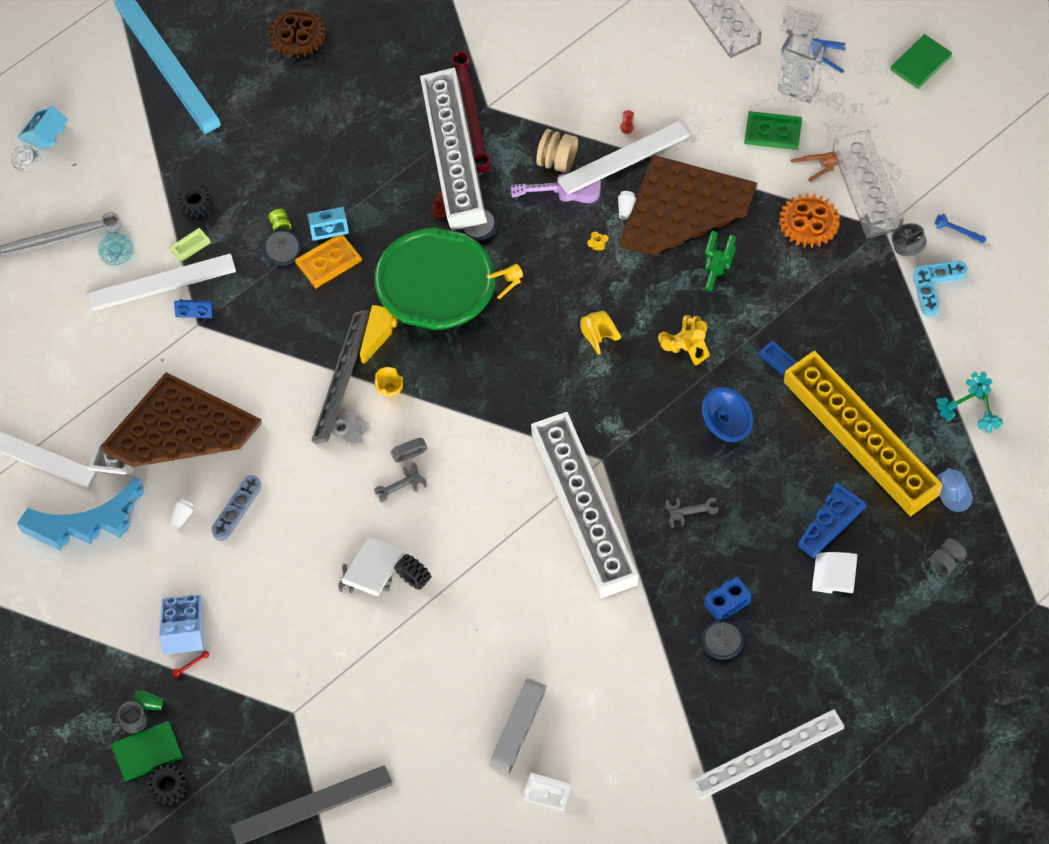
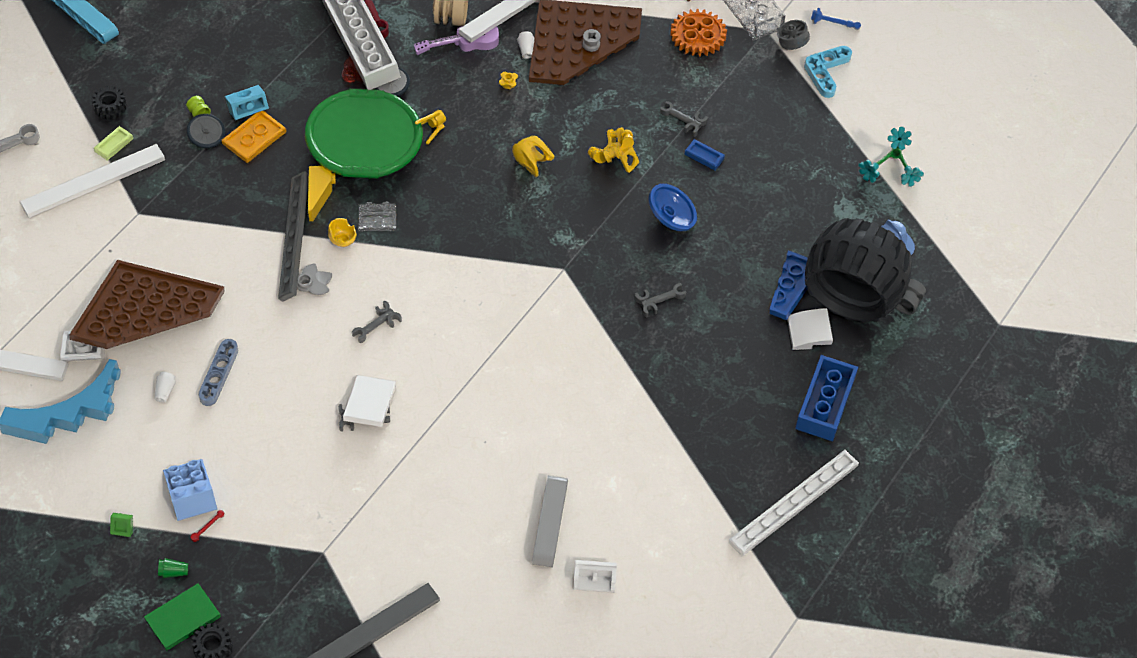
camera: 20 degrees left, 5 degrees down
(110, 647) = (121, 524): none -> bright green tile
(115, 249) = (39, 158): clear light blue wheel -> none
(132, 718) = (161, 586): dark grey wheel -> none
(193, 309) = (131, 199): blue hinge -> none
(409, 450) = (377, 290): dark grey beam -> none
(412, 571) = (410, 397): black tyre -> none
(428, 375) = (377, 220): none -> clear plate
(584, 505) = (561, 309): white brick -> none
(691, 217) = (591, 40): none -> light grey wheel
(718, 259) = (624, 78): green plant -> none
(722, 639) = (723, 407): dark grey wheel -> none
(730, 602) = (721, 372): blue brick -> none
(777, 323) = (692, 124): none -> dark grey bar
(829, 651) = (826, 398): none -> blue brick
(862, 433) = (780, 189): yellow brick -> none
(893, 523) = (858, 270): none -> black tyre

